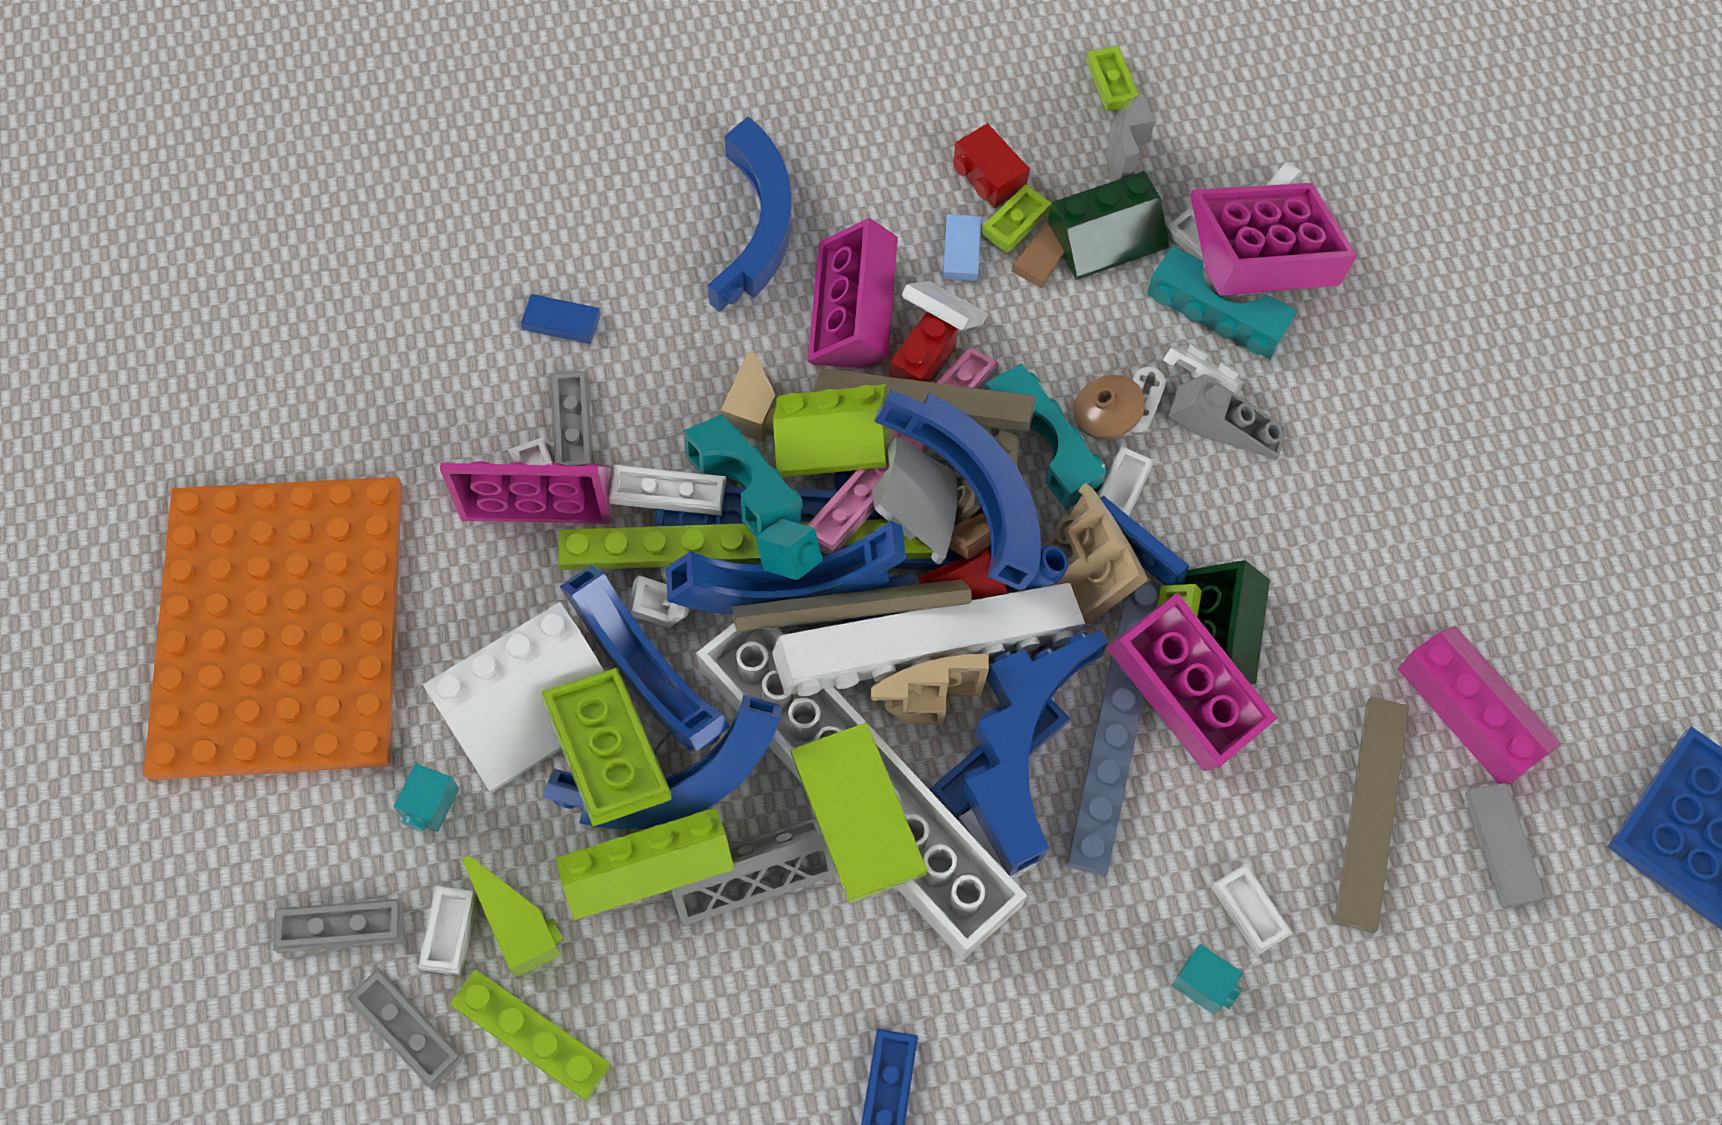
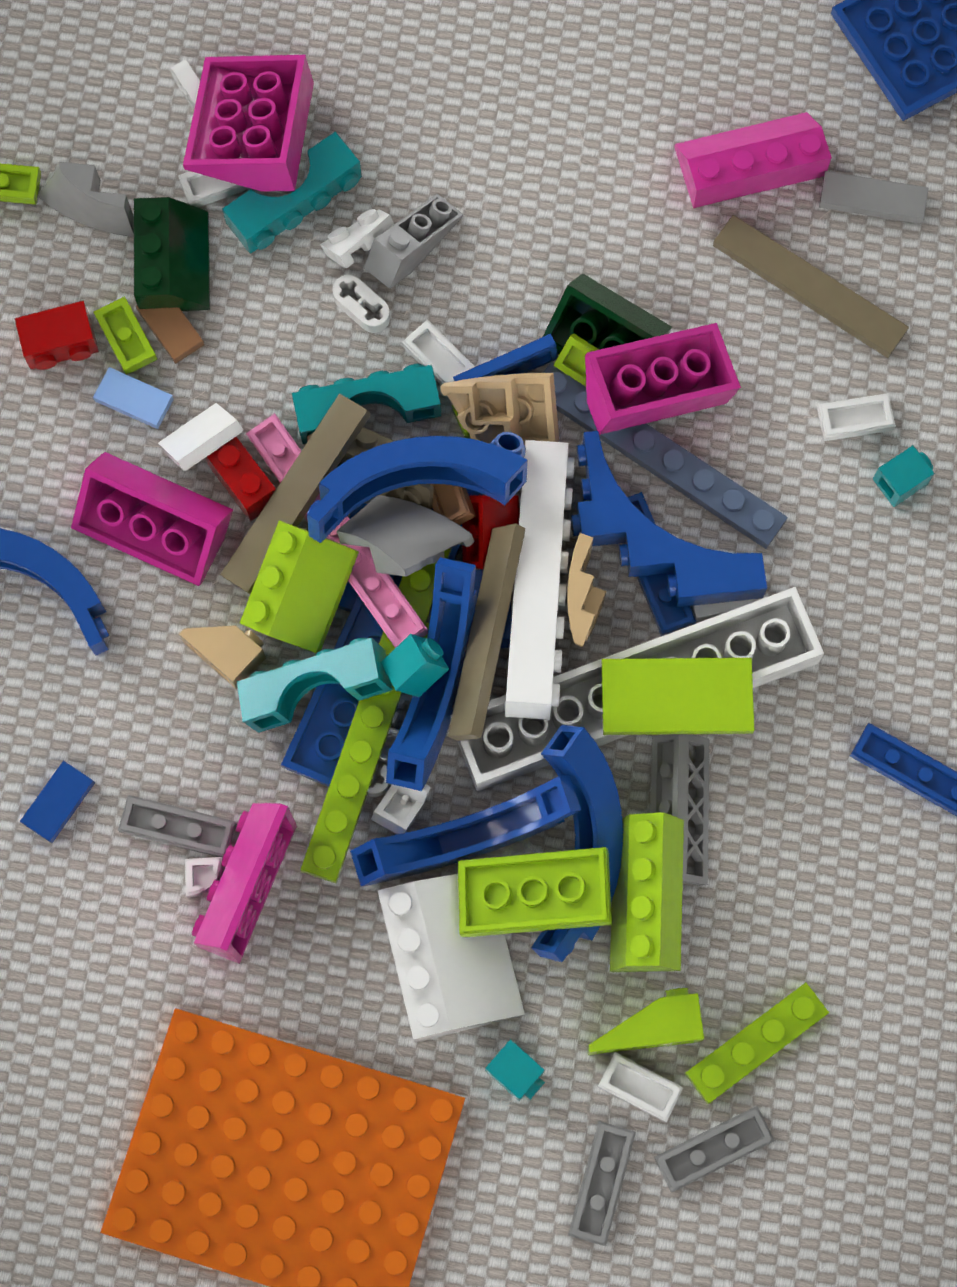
camera: 65 degrees left, 10 degrees up
(667, 490) = (295, 756): white tile -> none
(1113, 417) = (375, 339): medium nougat dish -> none

